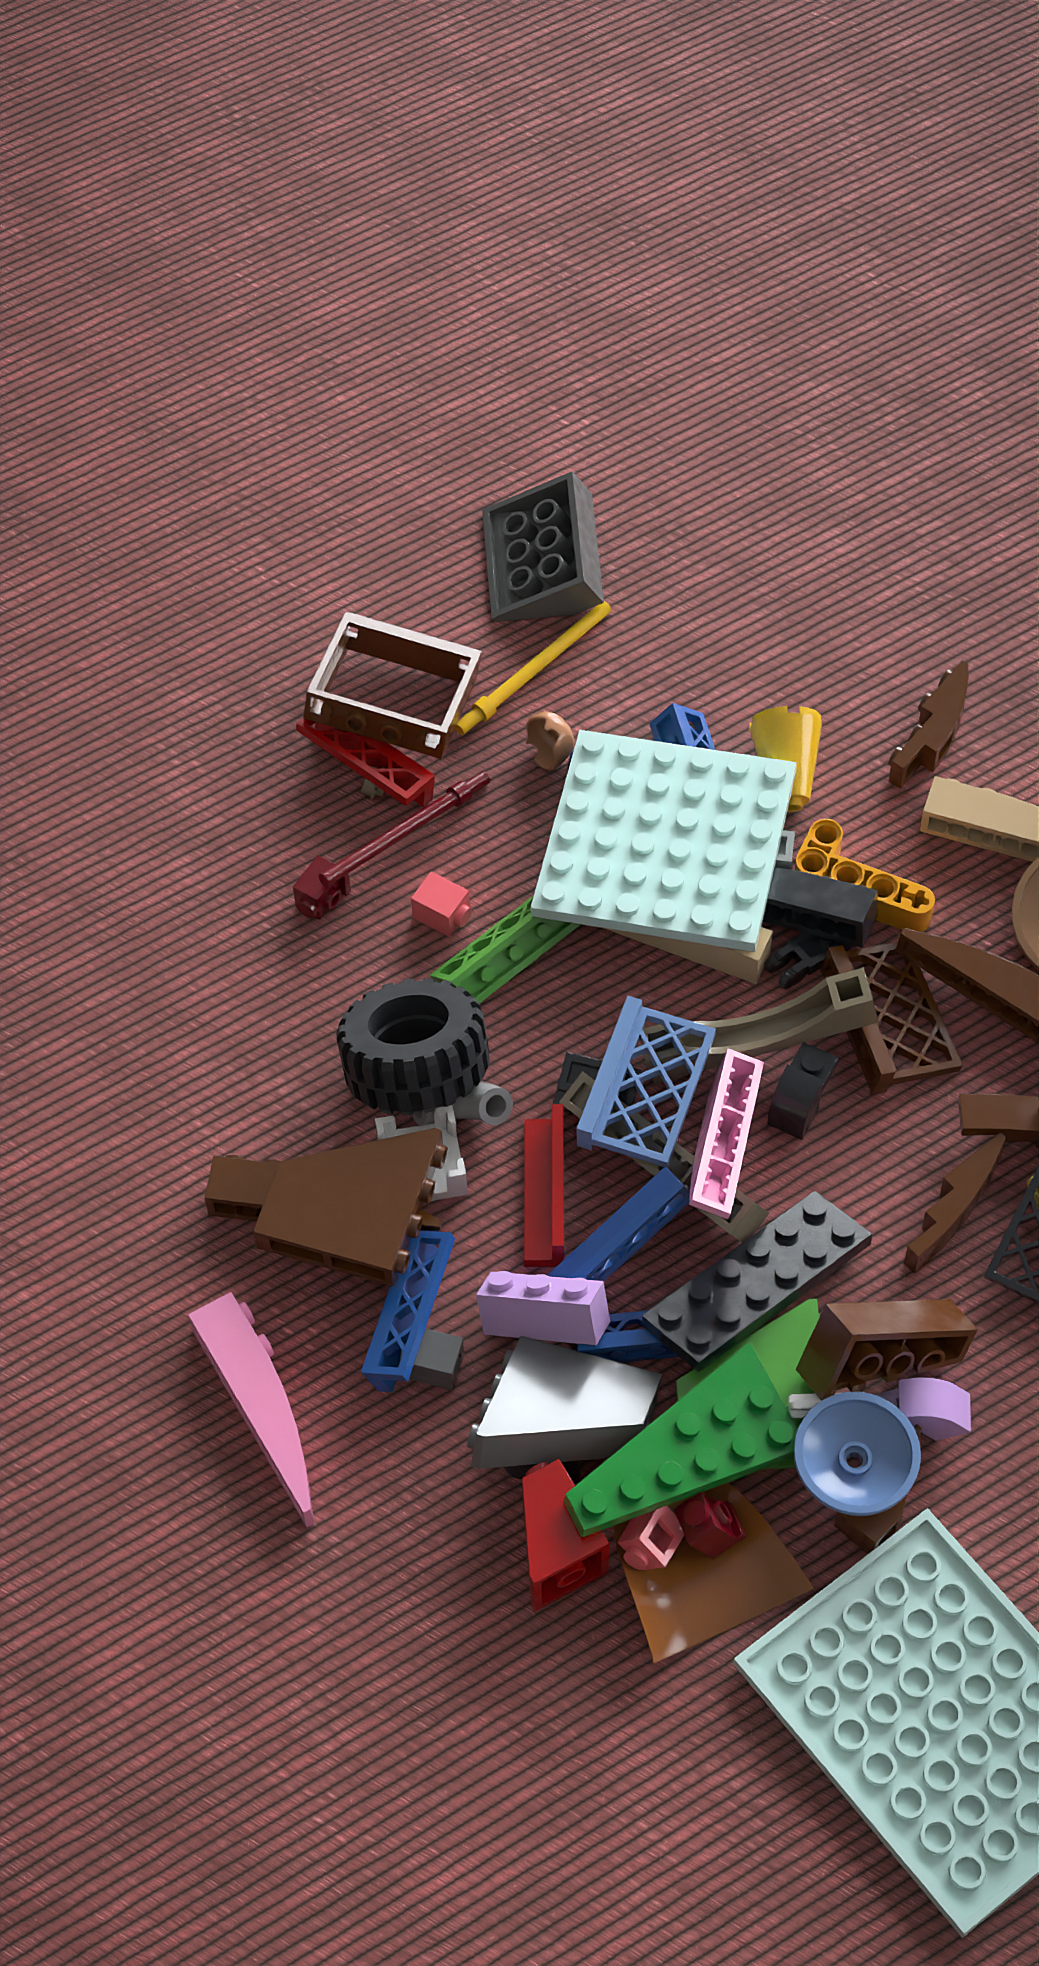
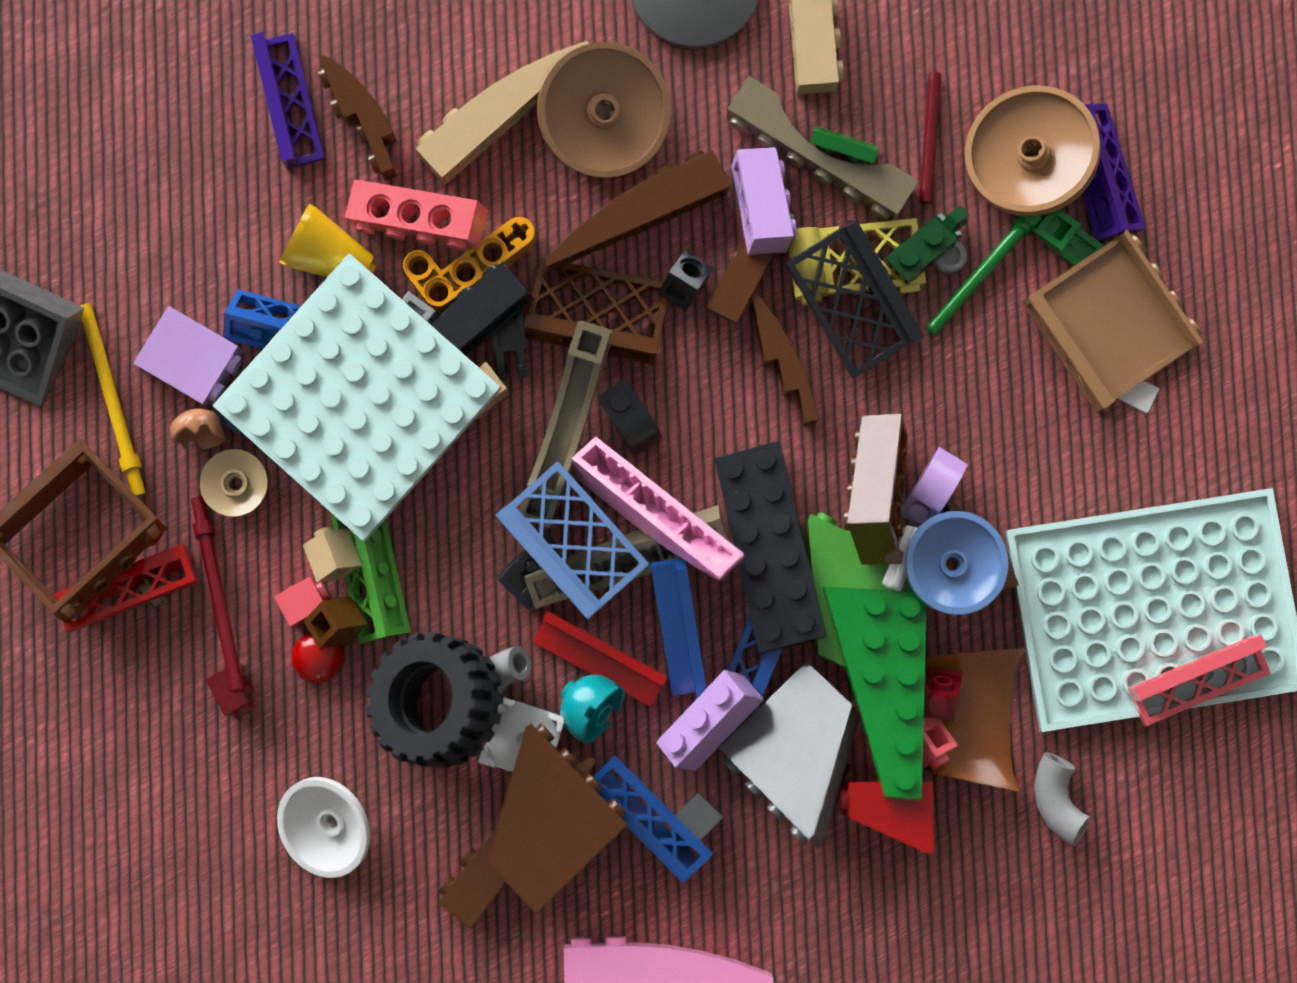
camera: 65 degrees left, 25 degrees up
(232, 1022) = (314, 836): none -> white dish
(396, 945) = (316, 664): none -> red hair
(438, 935) = (335, 622): none -> reddish brown brick
(490, 1199) = (589, 704): none -> teal cylinder
(501, 902) = (332, 554): none -> tan brick
(518, 782) = (217, 479): none -> tan dish
(613, 696) = (189, 357): none -> lavender brick
(668, 1712) = (1054, 800): none -> light grey cylinder
(873, 808) = (370, 199): none -> coral brick
(896, 654) = (275, 102): none -> dark purple fence
(906, 1780) = (1196, 668): none -> coral fence
(973, 1068) = (685, 280): none -> black brick

